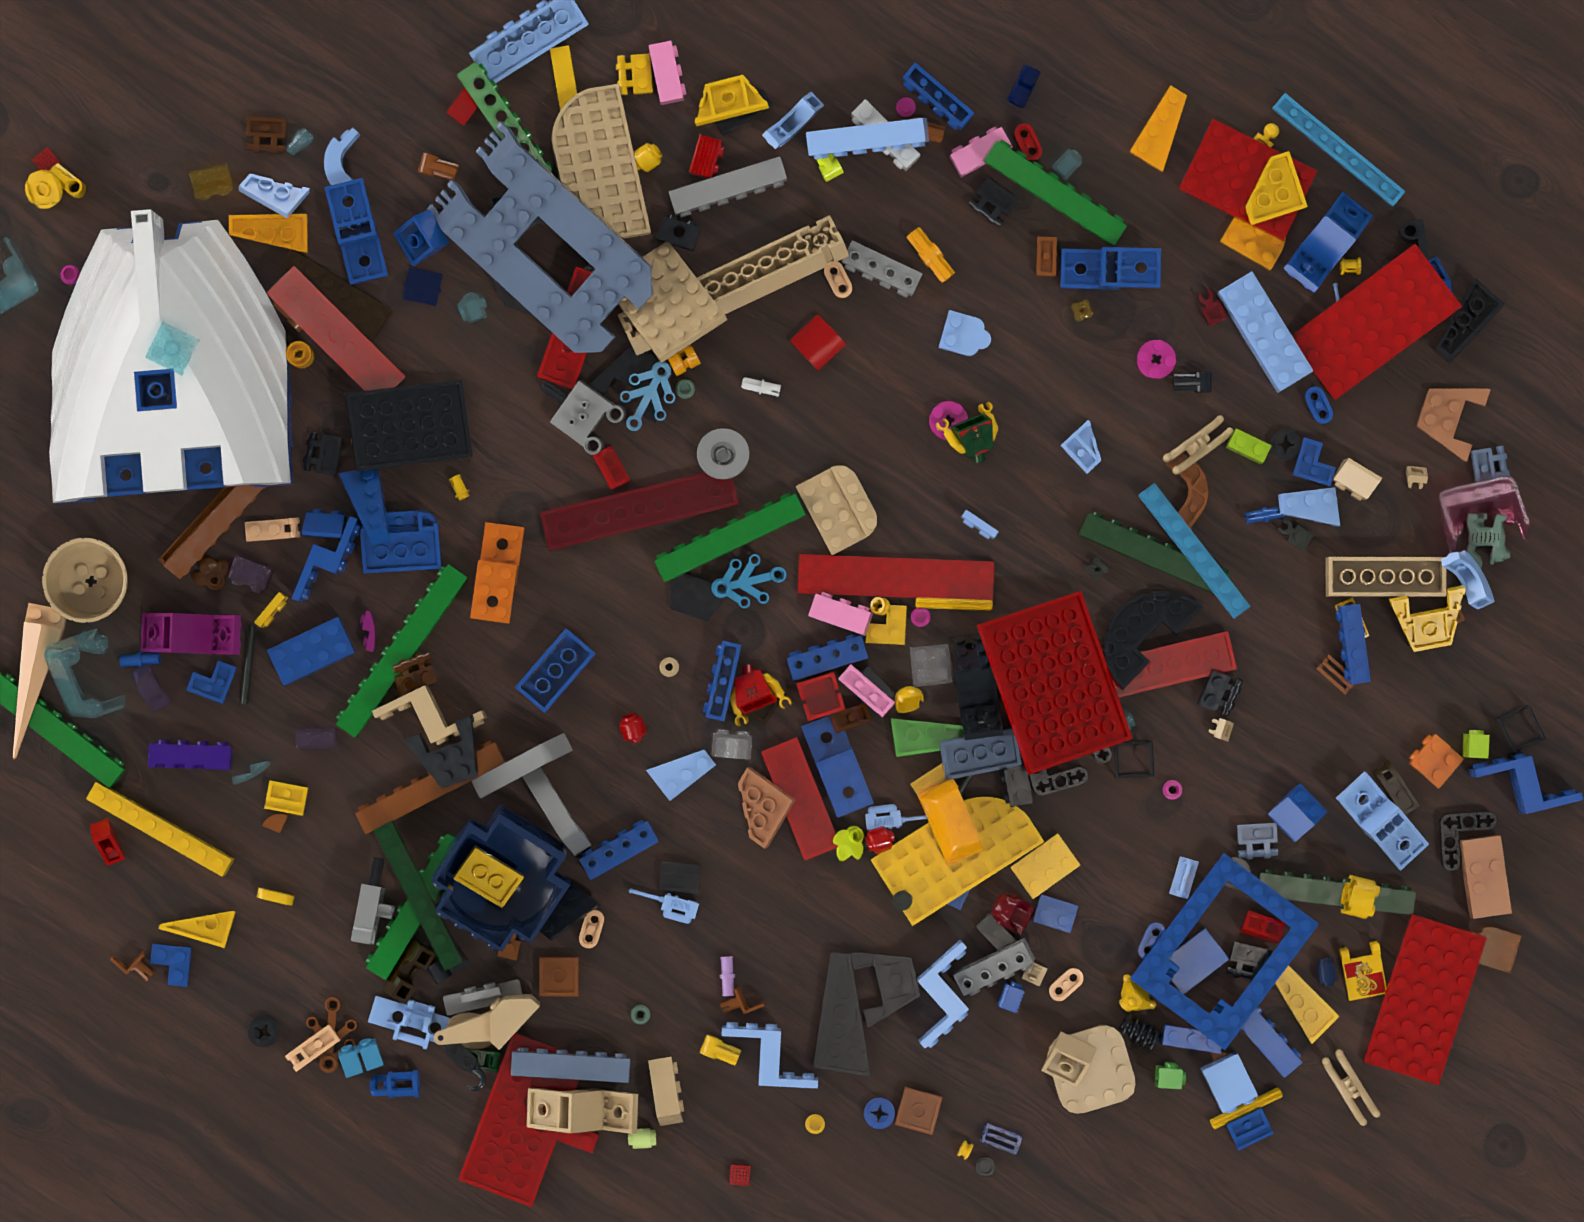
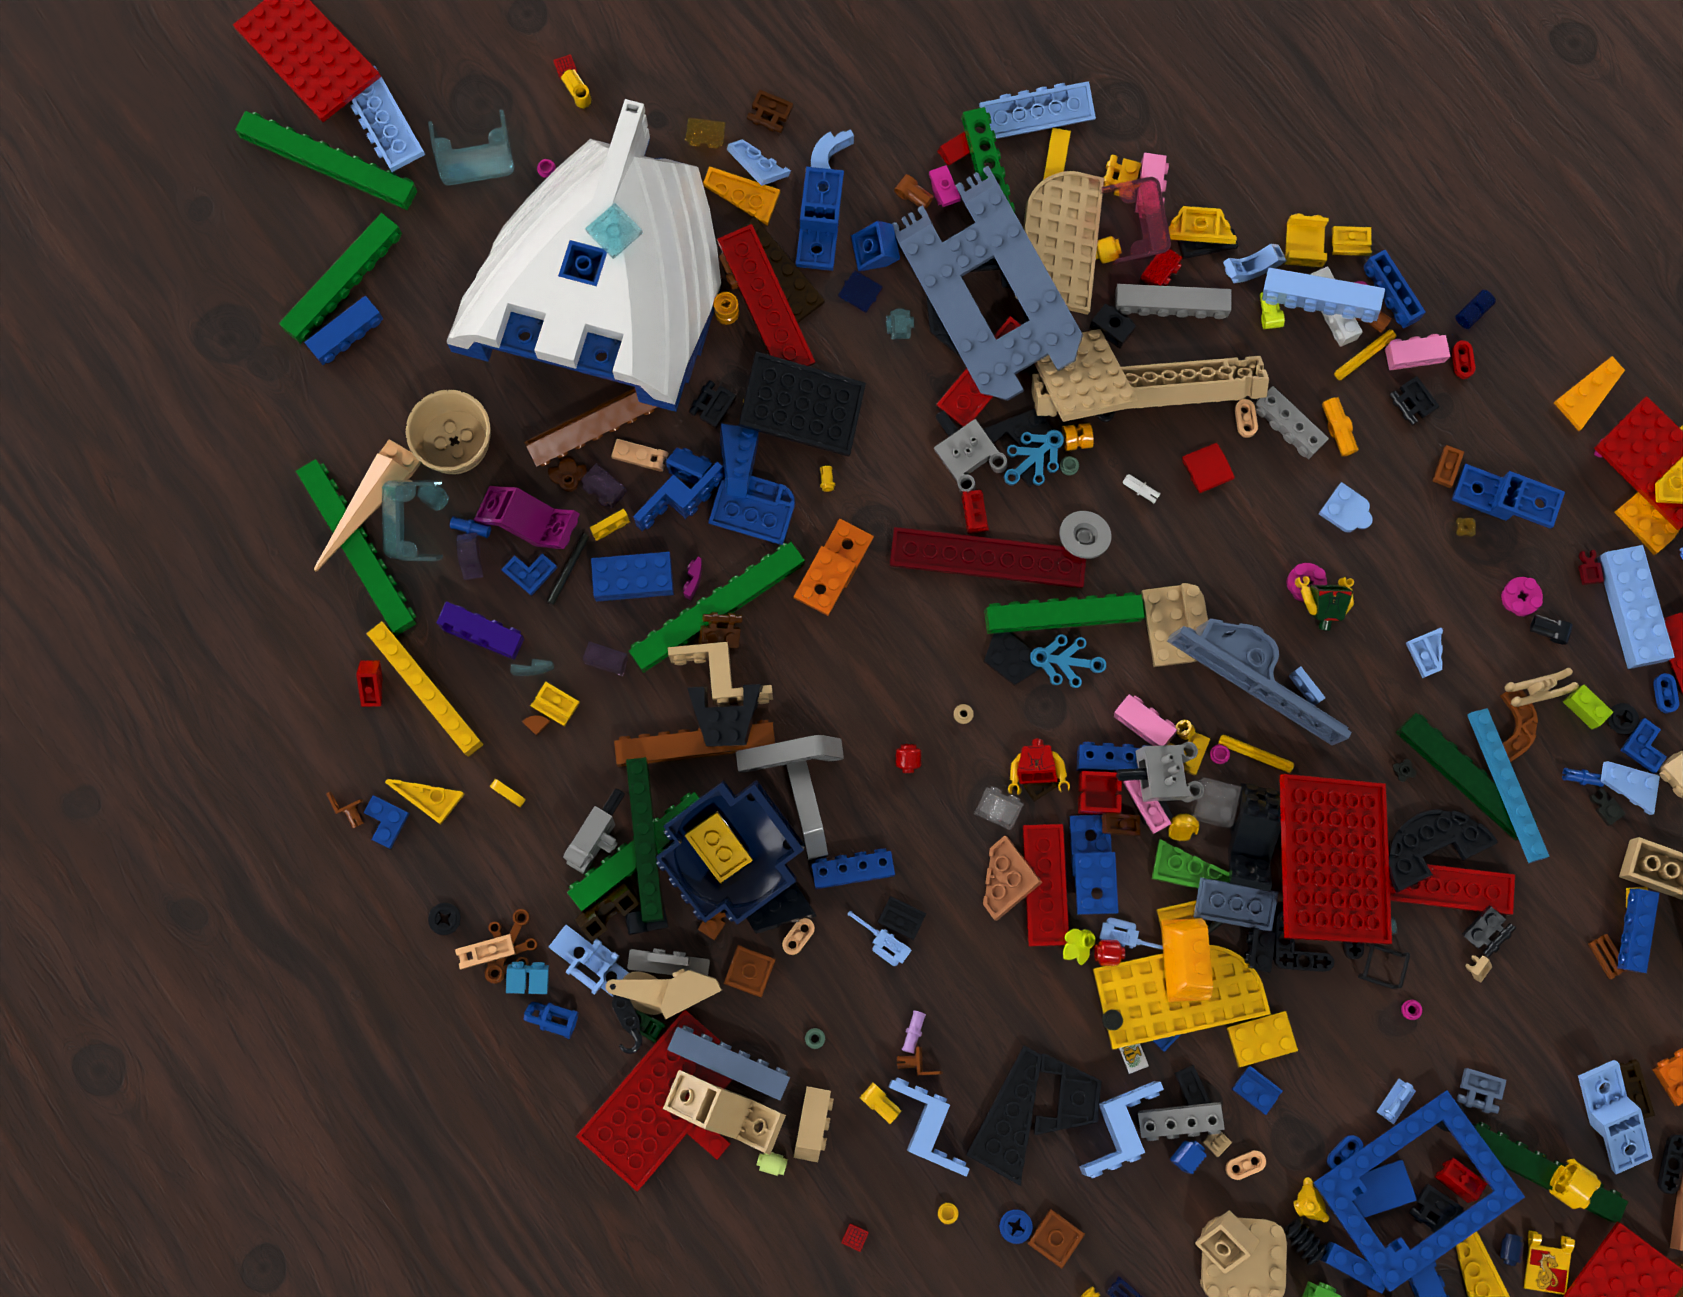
camera: 20 degrees right, 10 degrees down
(43, 189) = (553, 86): yellow tile -> none
(299, 141) = (797, 127): clear light blue cone -> none
(465, 152) = (944, 186): none -> dark pink brick
(555, 670) = (855, 676): blue brick -> none
(681, 773) = (938, 818): light blue wing -> none
(689, 136) = (1152, 217): none -> clear pink windscreen
(723, 680) = (1011, 744): blue brick -> none
(837, 75) = (1306, 240): none -> yellow panel
(870, 659) = (1163, 773): none -> light grey piece
(881, 59) = (1351, 240): none -> yellow plate
(895, 577) = (1208, 708): red plate -> none
(899, 528) = (1248, 660): none -> sand blue piece
(932, 171) = (1365, 354): none -> yellow axle
(935, 925) = (1134, 1057): none -> sticker
(1012, 912) = (1216, 1072): dark red helmet -> none
(1055, 193) = (1476, 409): green brick -> none
(1067, 164) = (1494, 391): clear light blue brick -> none
(1297, 812) = (1531, 1077): slope -> none

